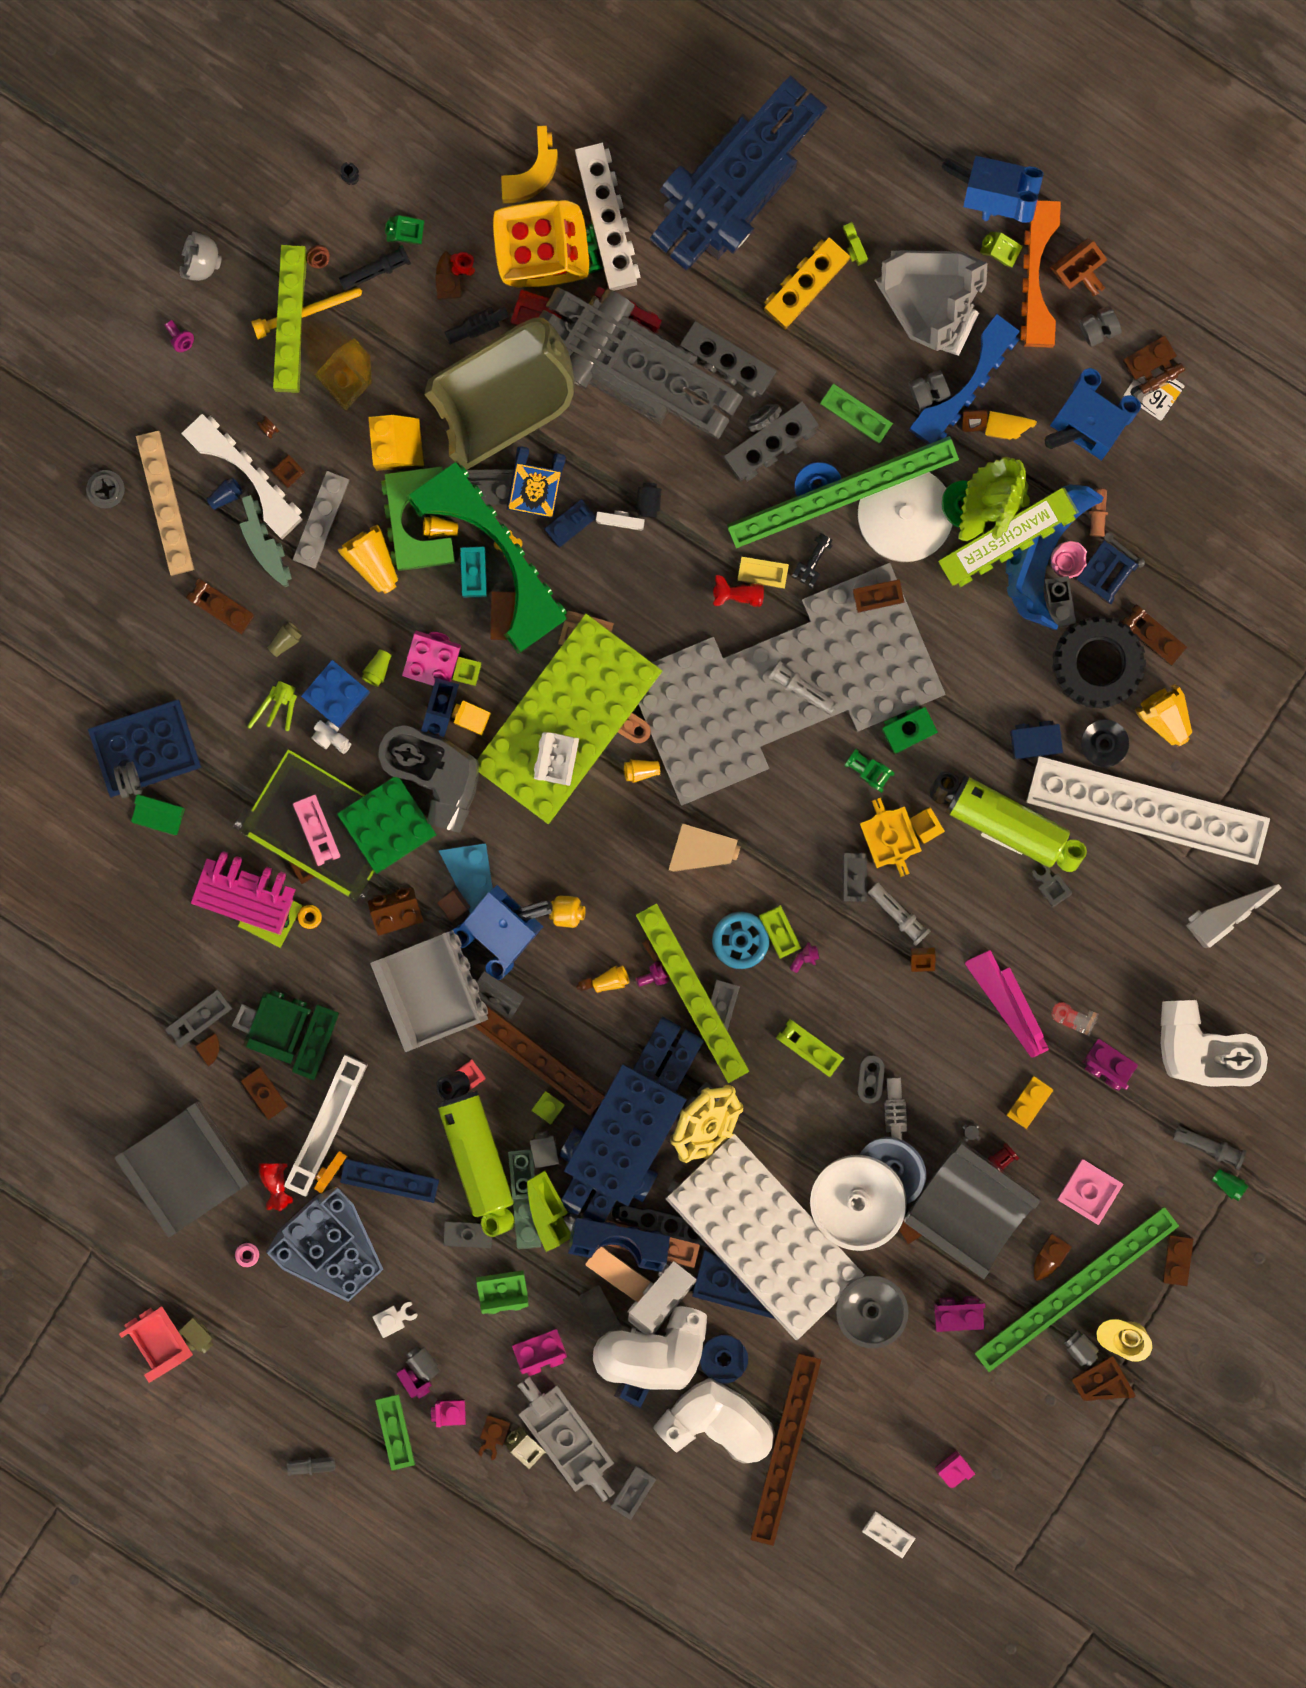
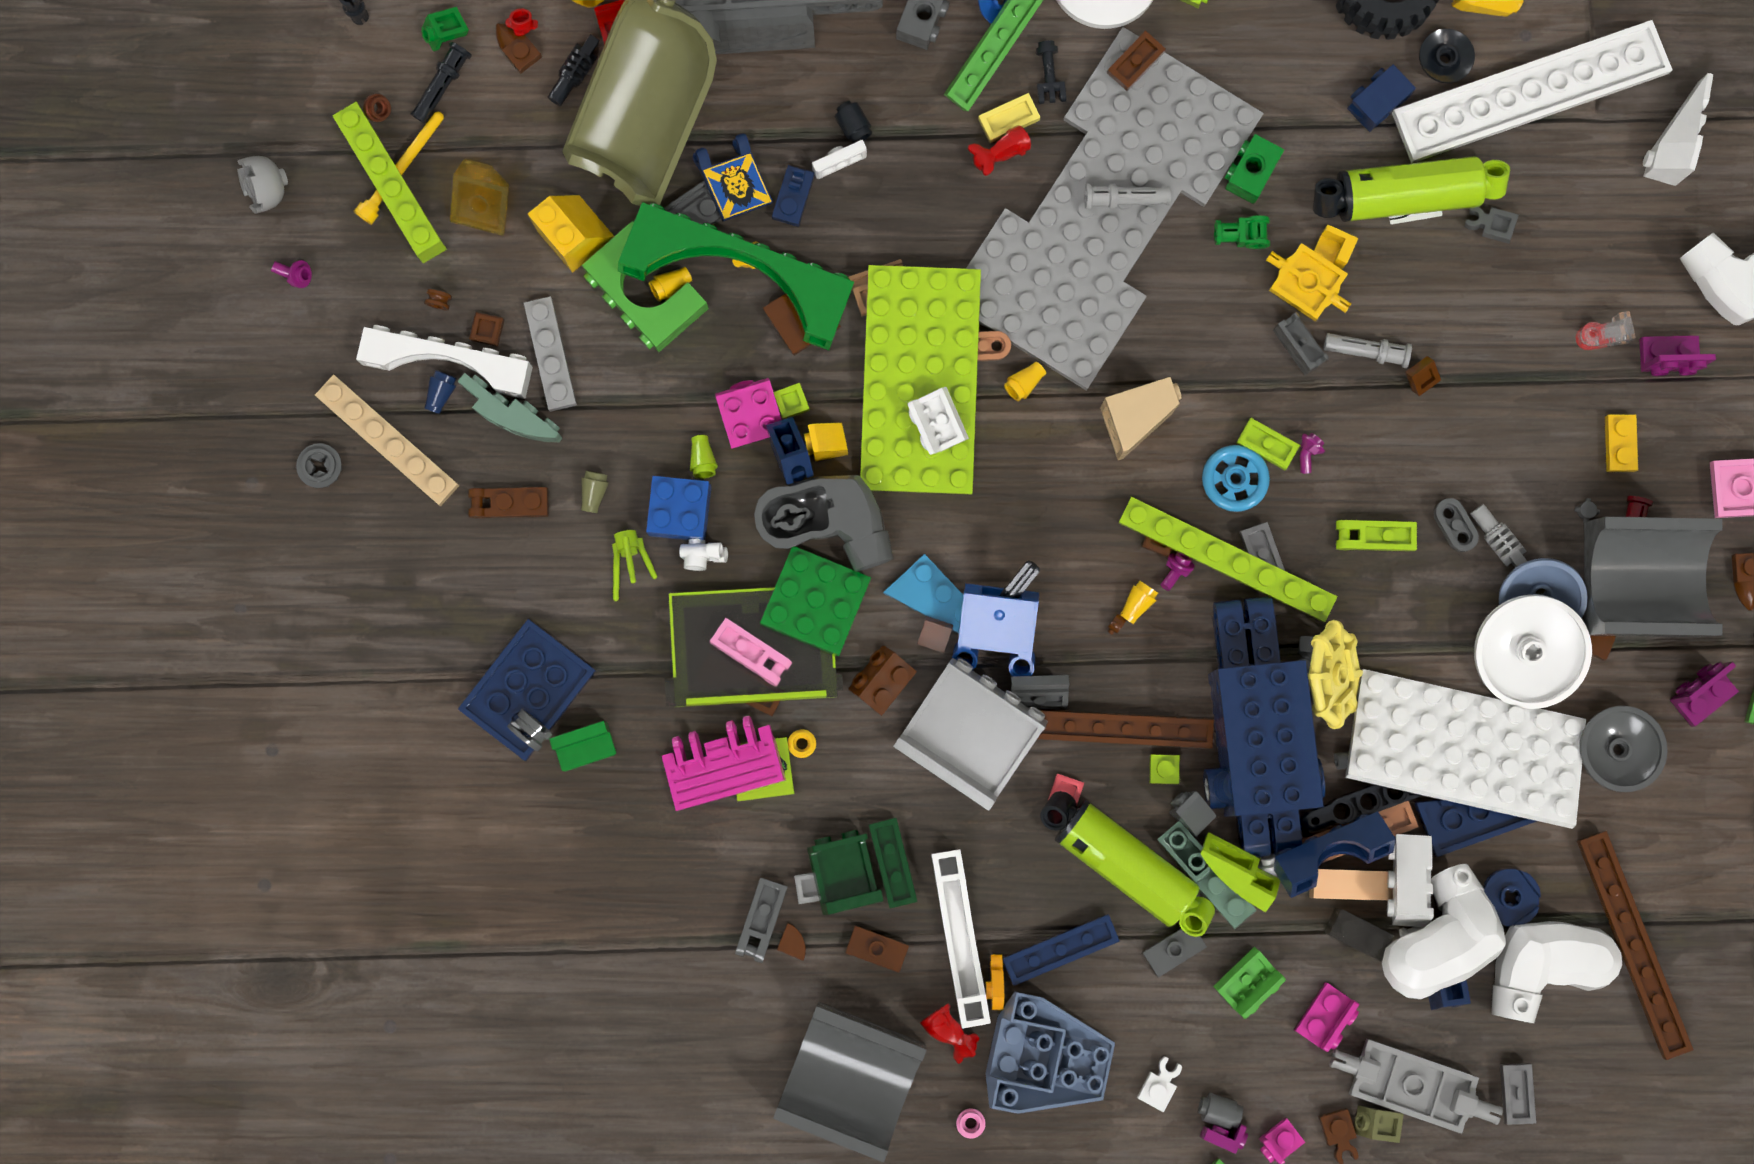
camera: 30 degrees left, 5 degrees down
(371, 559) = (625, 356): yellow cone -> none
(473, 572) = (733, 301): teal panel -> none
(567, 911) = (1052, 564): yellow head -> none
(1009, 1001) = (1531, 358): dark pink wedge -> none

